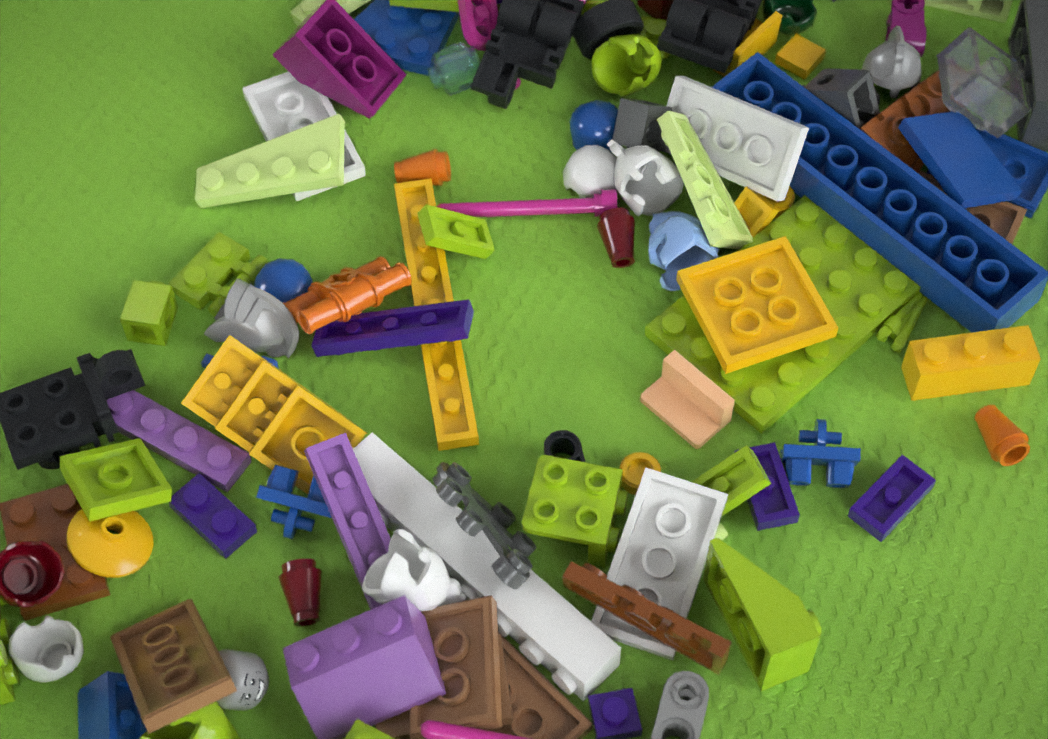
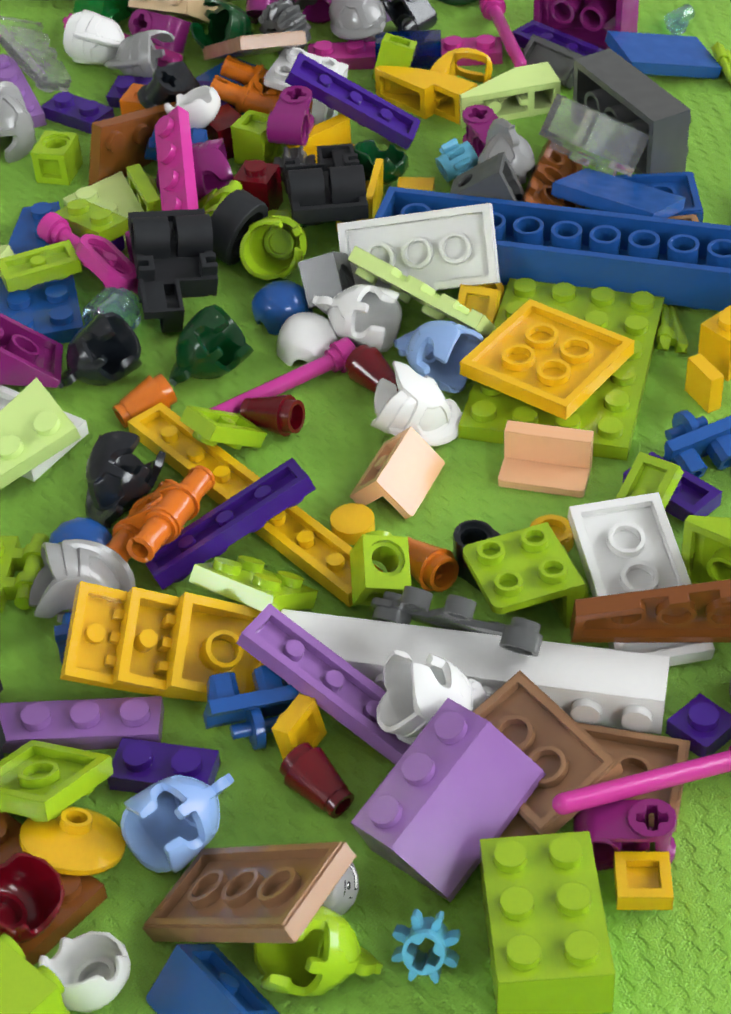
camera: 30 degrees left, 15 degrees down
(178, 568) = (172, 821): none -> light blue helmet
(318, 541) = (298, 725): none -> yellow plate
(348, 236) = (117, 476): none -> black helmet
(371, 397) = (253, 585): none -> lime plate
(421, 104) = (102, 352): none -> black helmet
(468, 457) = (366, 578): none -> lime brick
(496, 374) = (352, 521): none -> yellow tile
(506, 142) = (209, 346): none -> dark green helmet
(512, 236) = (275, 413): none -> dark red cone
(519, 446) = (432, 566): none -> orange cone
(564, 349) = (400, 473): none -> light nougat panel
(617, 299) = (415, 405): none -> white helmet
(854, 43) = (455, 159): none -> medium azure gear
(878, 396) = (704, 383): none -> yellow tile

